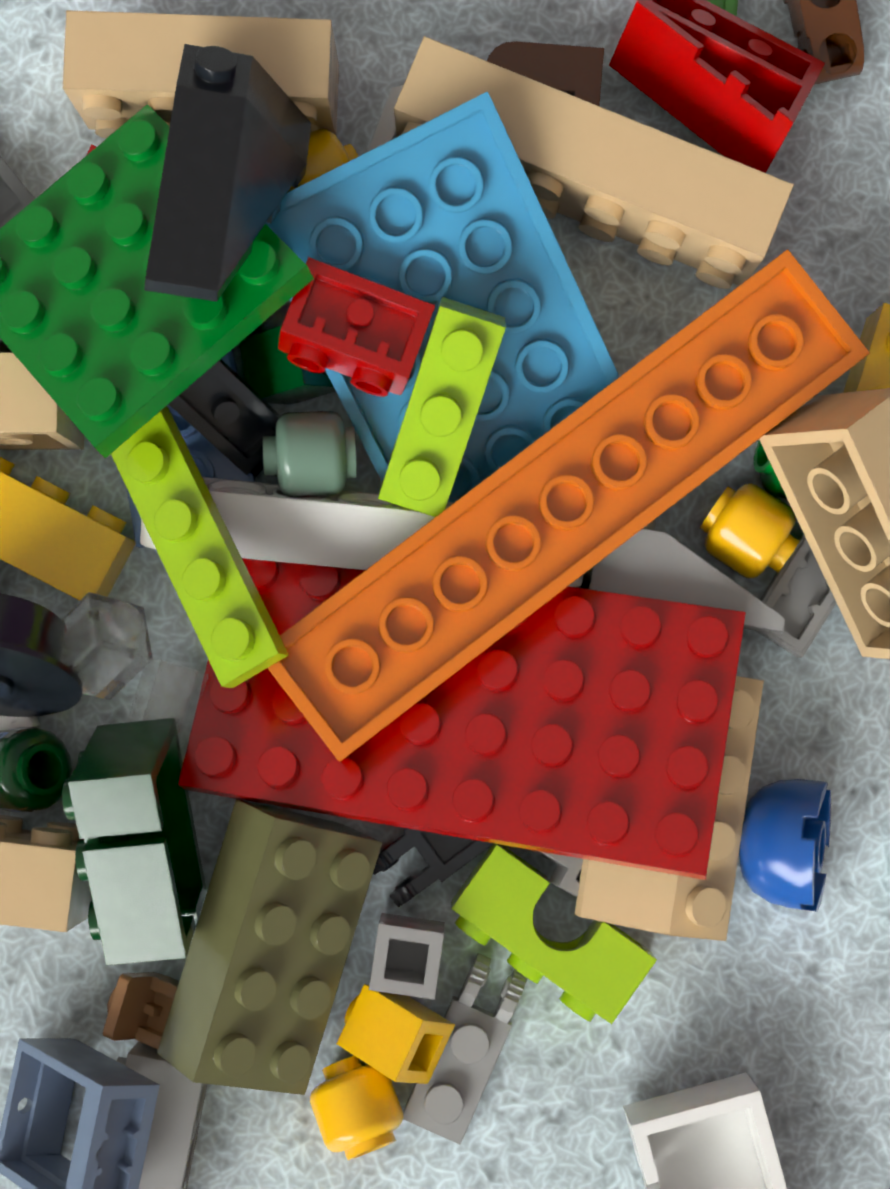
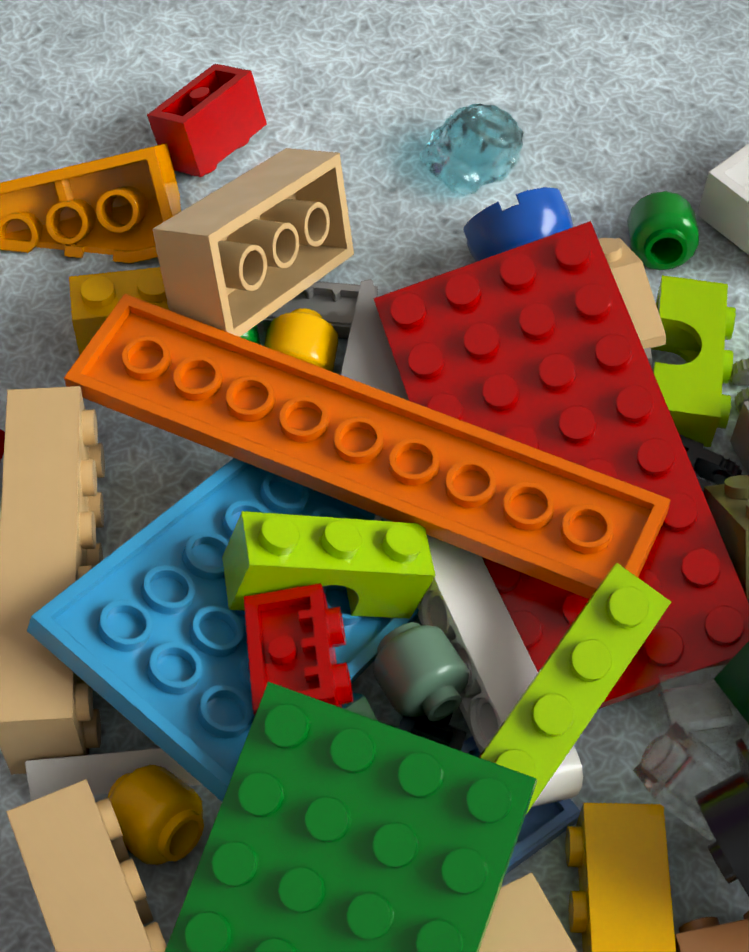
camera: 120 degrees left, 30 degrees down
(225, 170) = (217, 805): black wedge -> none
(732, 1011) = (663, 230): none -> green head

